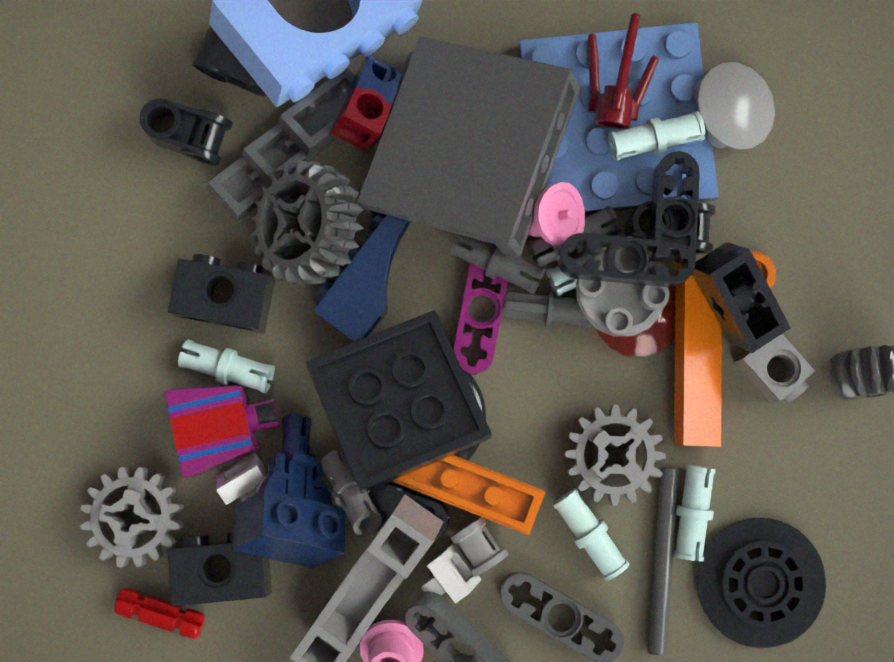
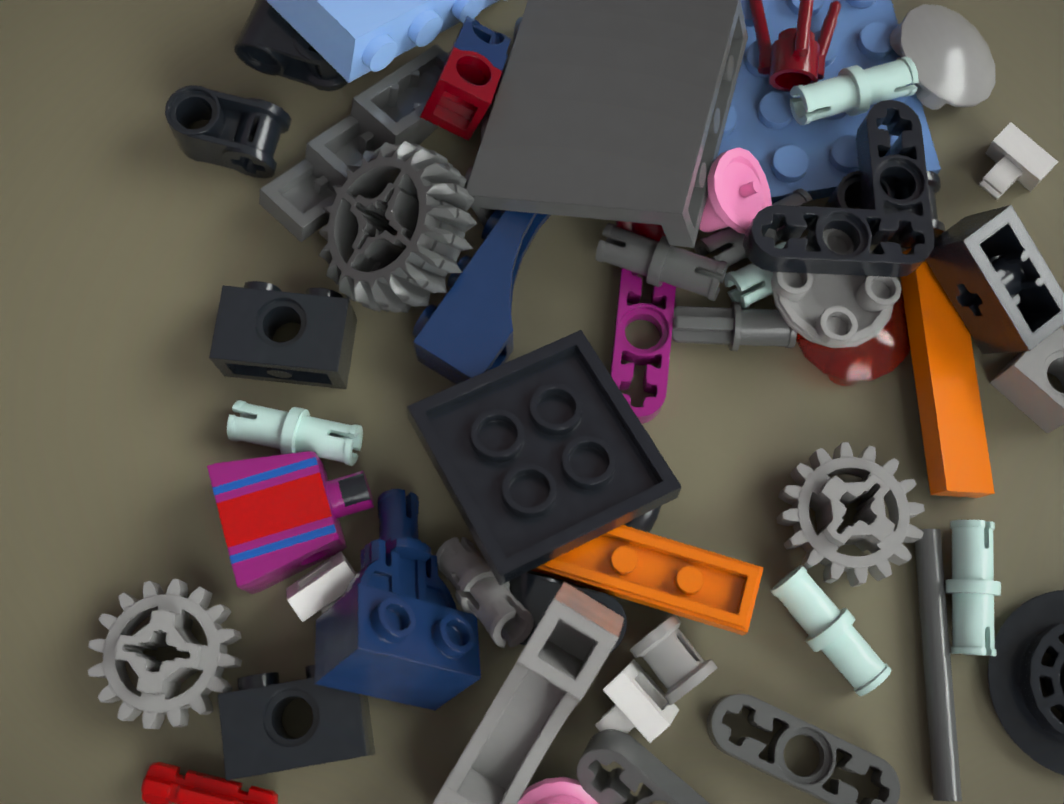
camera: 10 degrees left, 10 degrees down
(776, 195) = (1017, 160): none -> white tile

